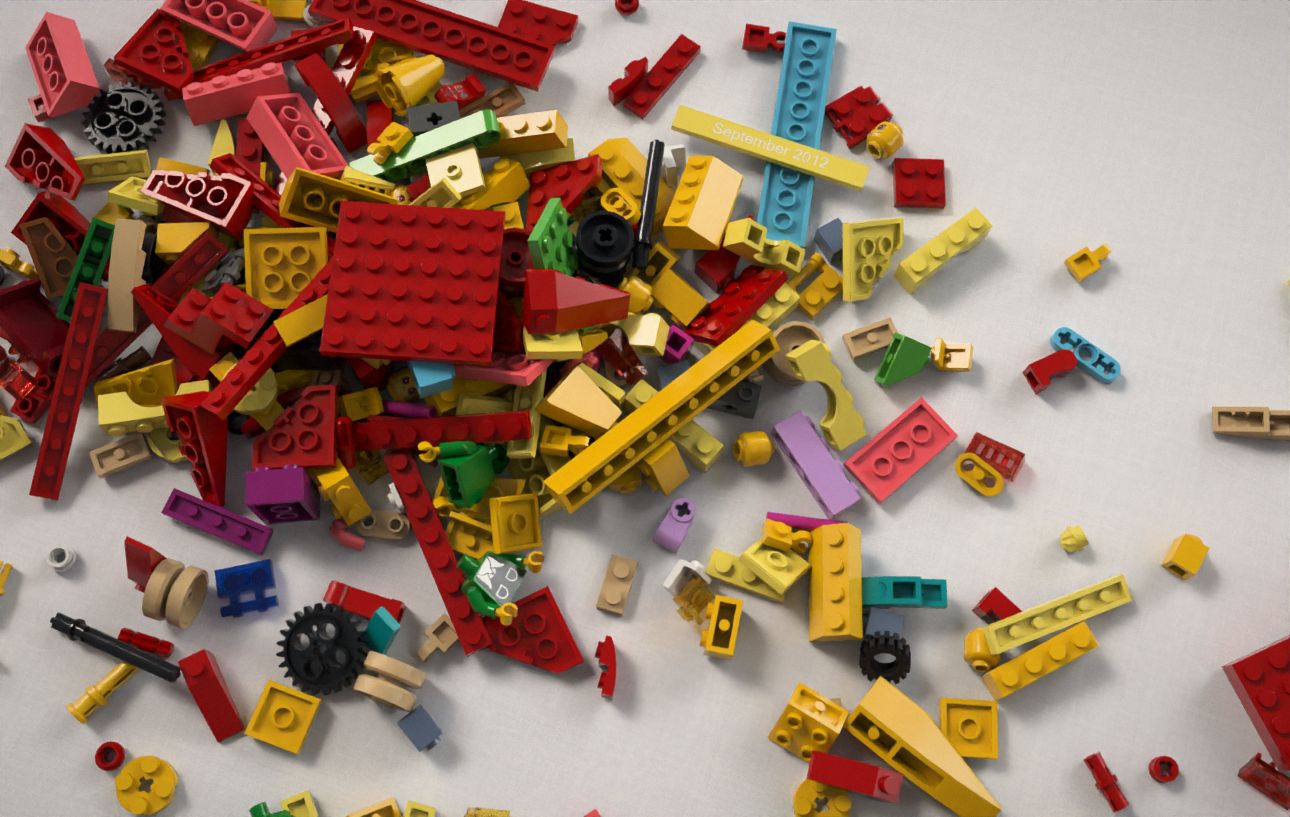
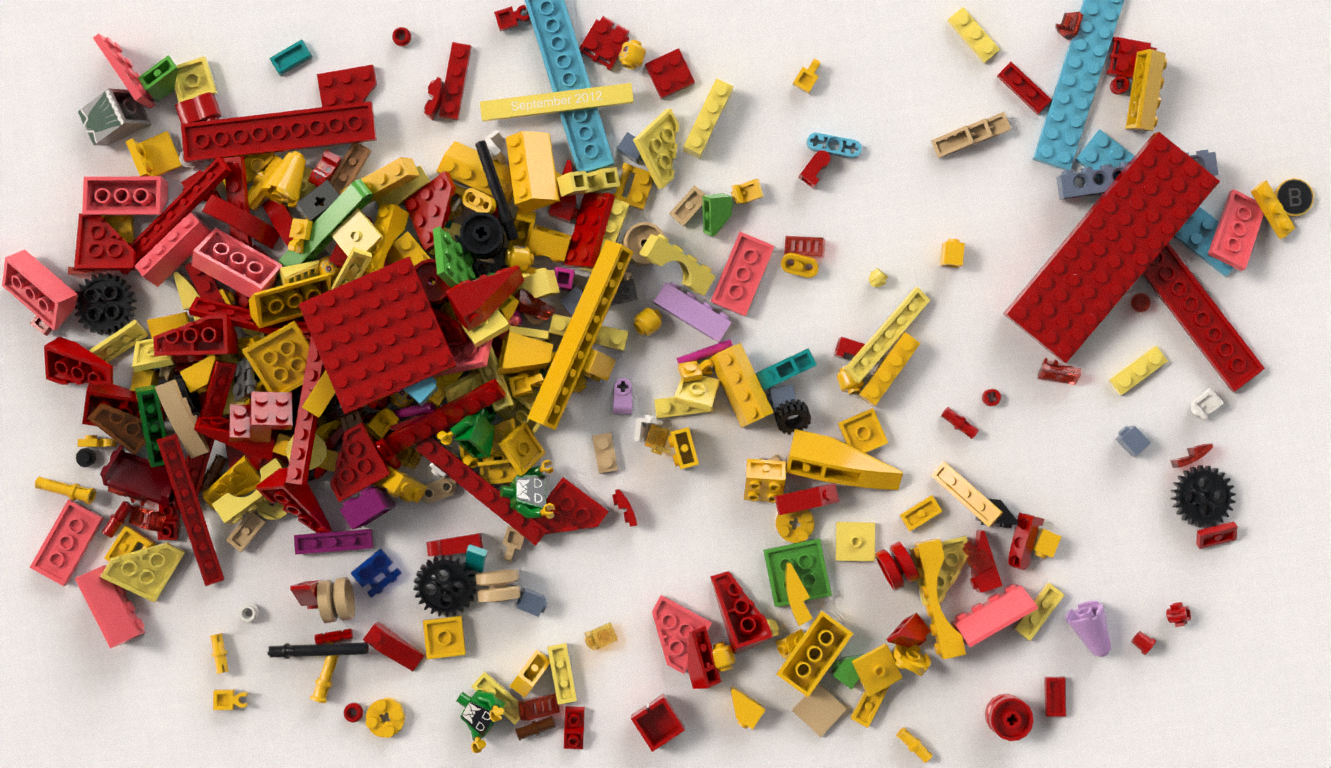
camera: 25 degrees left, 15 degrees up
(344, 538) = (419, 511): coral arm -> none

